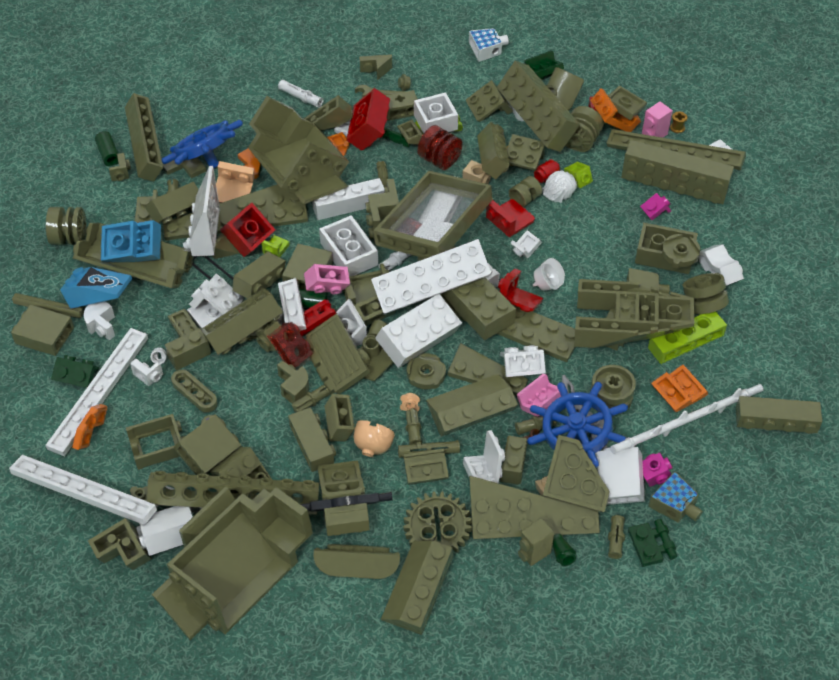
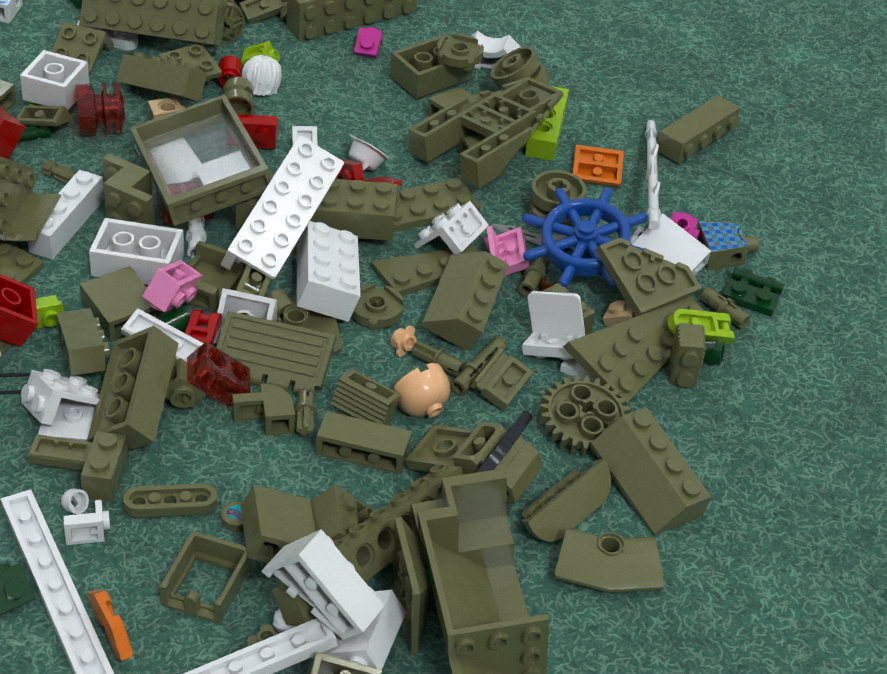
camera: 55 degrees left, 10 degrees down
(157, 491) = (326, 582): none -> white wedge
(332, 622) = (610, 562): none -> olive panel
(575, 533) = (715, 324): none -> lime plate

